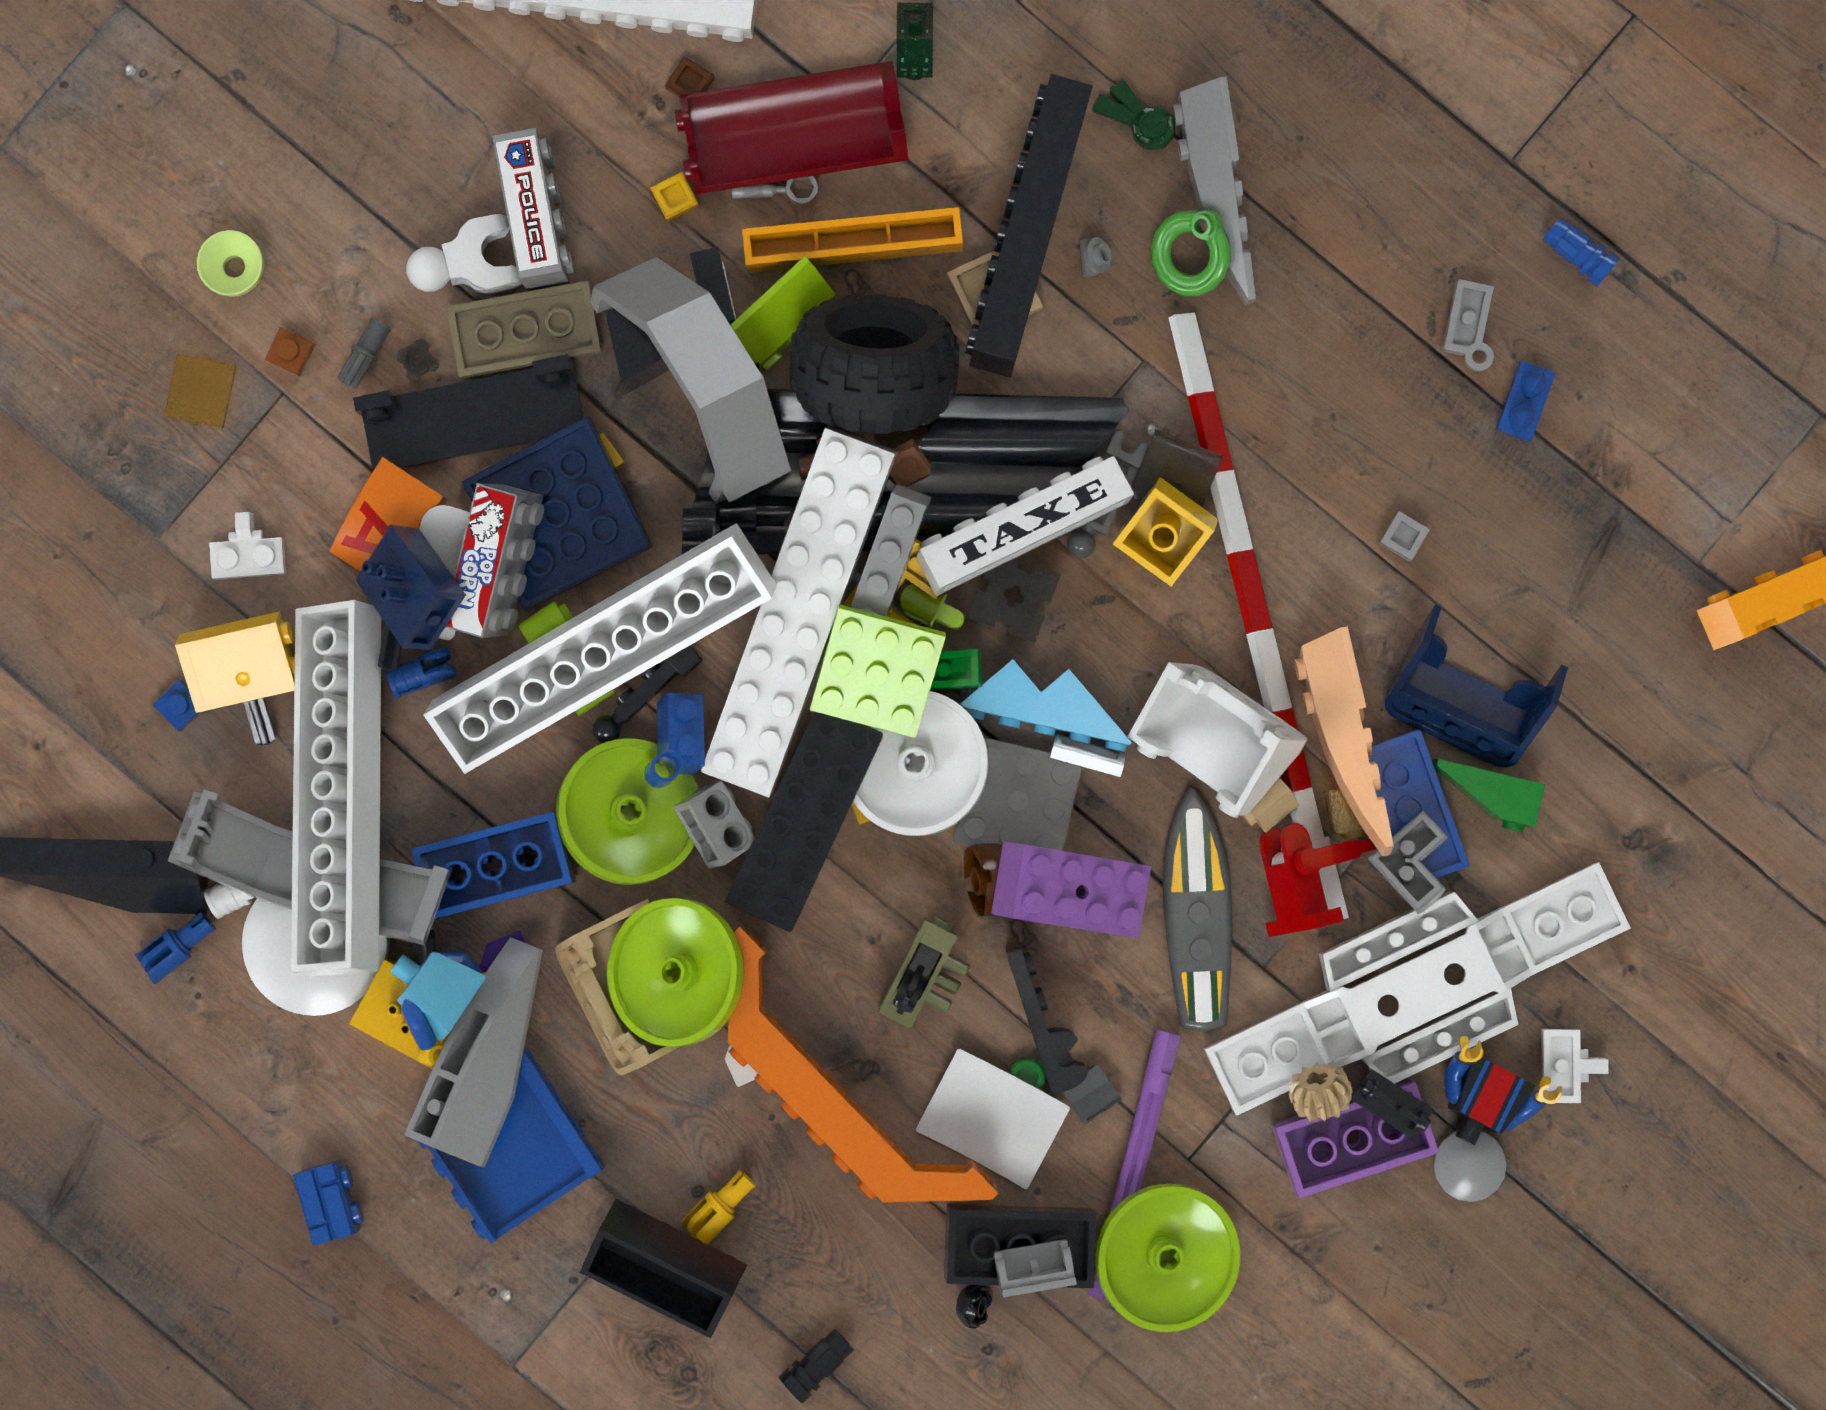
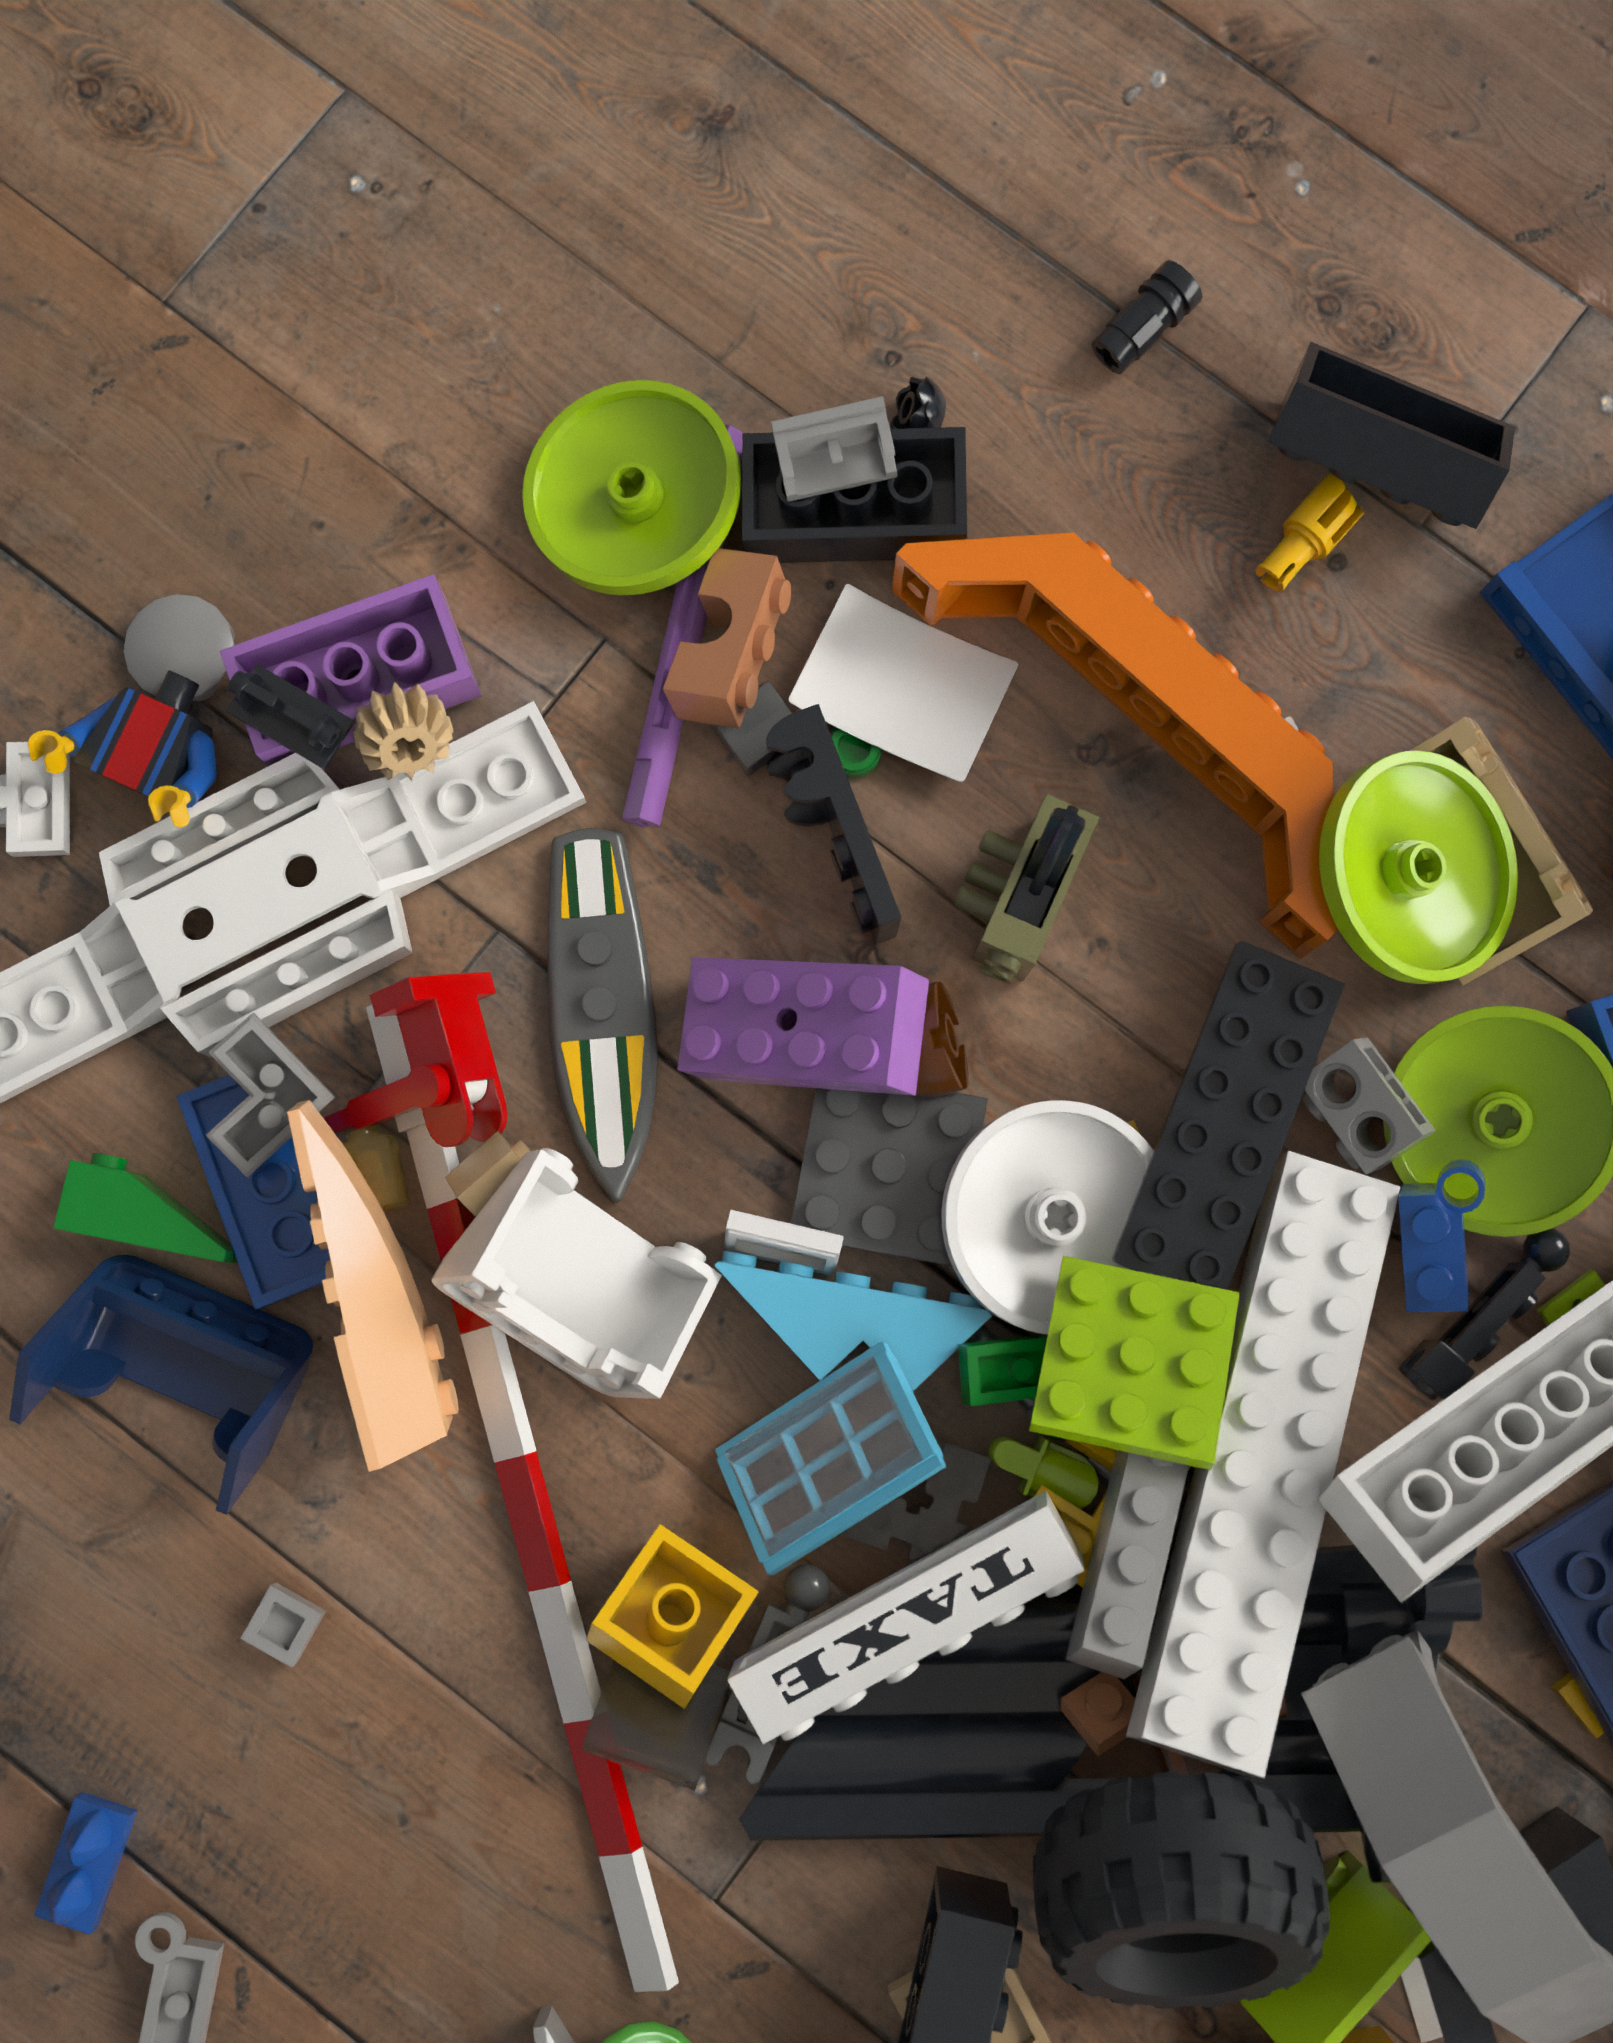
camera: 175 degrees right, 5 degrees down
(1066, 621) = (829, 1458): none -> clear piece
(1114, 1120) = (720, 677): none -> nougat arch

